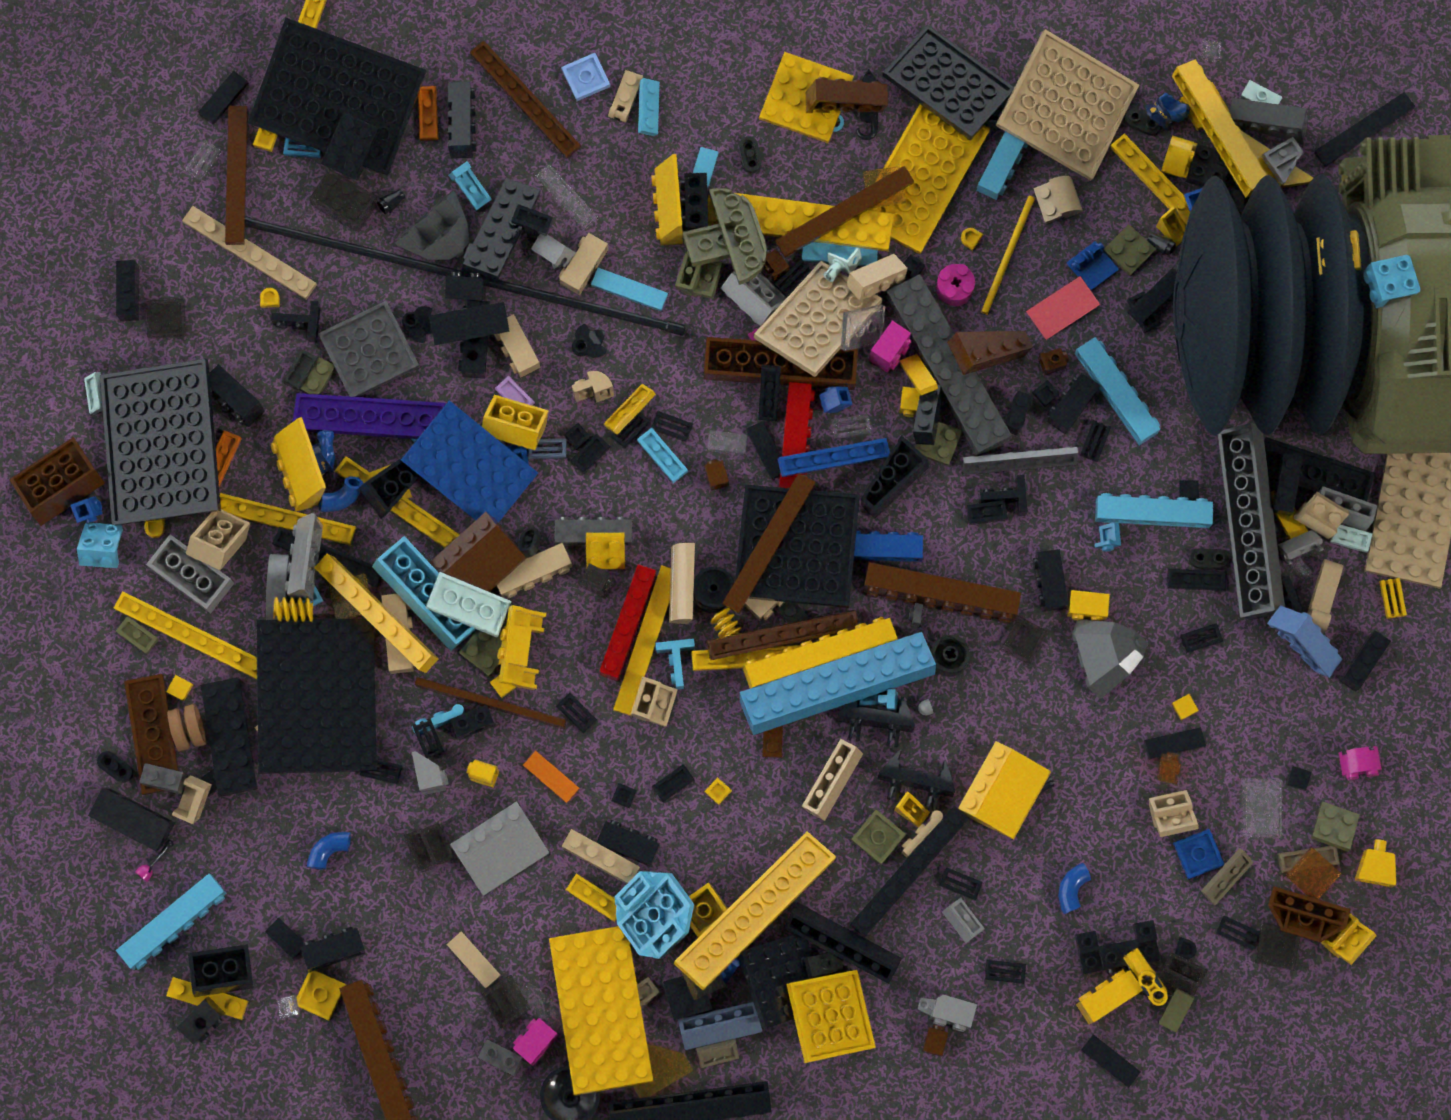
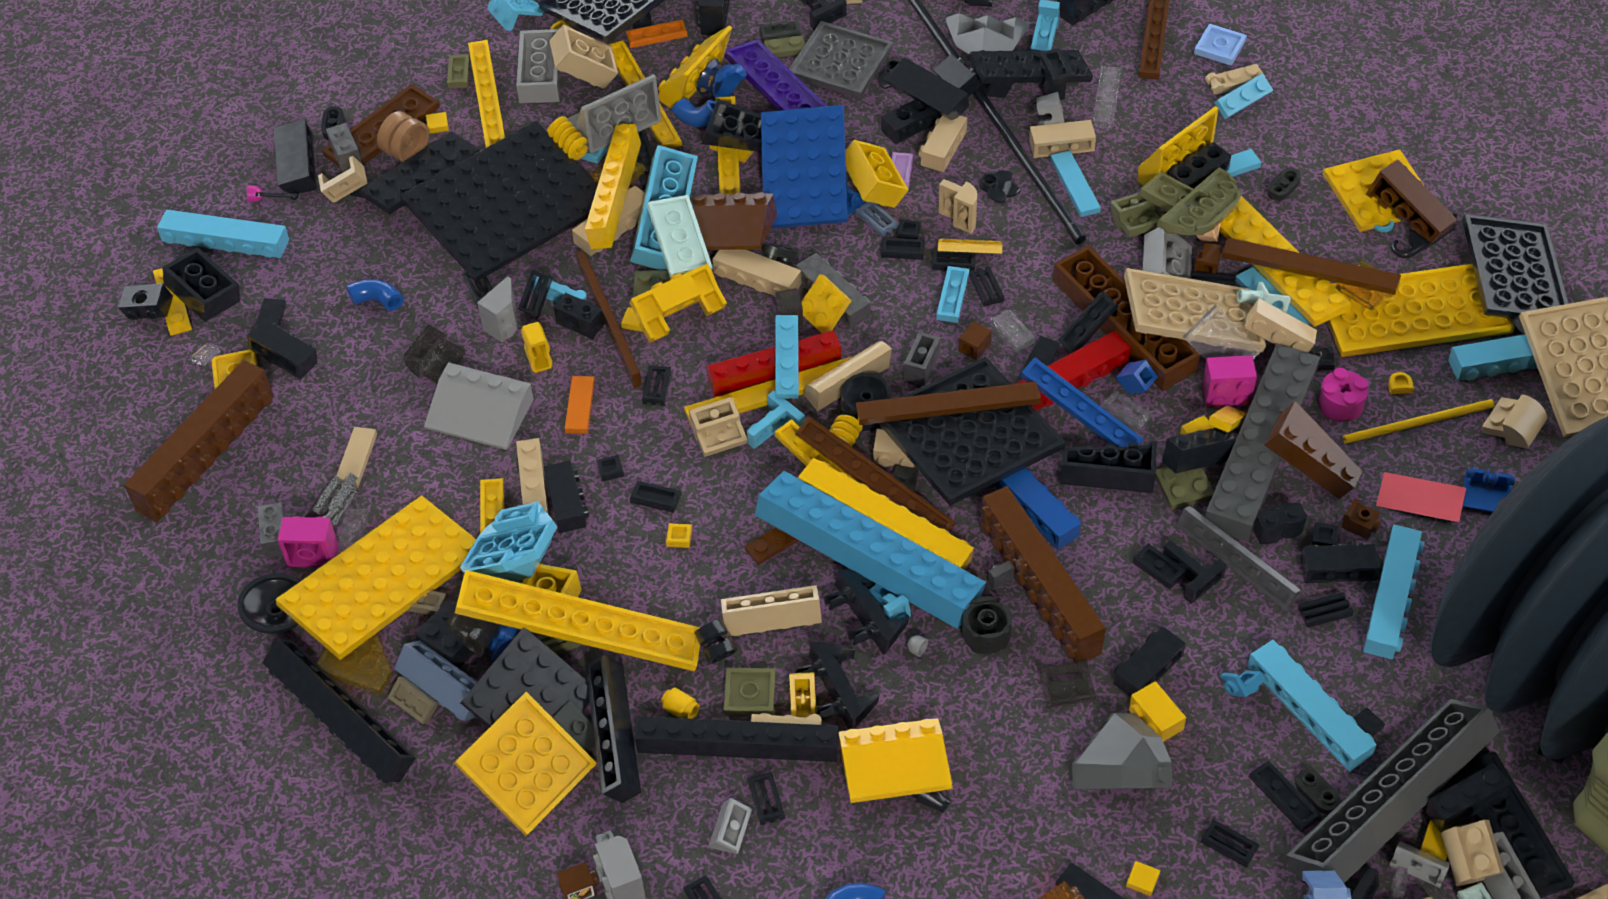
camera: 55 degrees right, 25 degrees down
(640, 614) = (786, 356): none -> medium azure plate
(706, 523) = (921, 358): none -> flat silver brick
(827, 831) = (712, 633): none -> black wheel
(854, 887) = (680, 704): none -> yellow brick

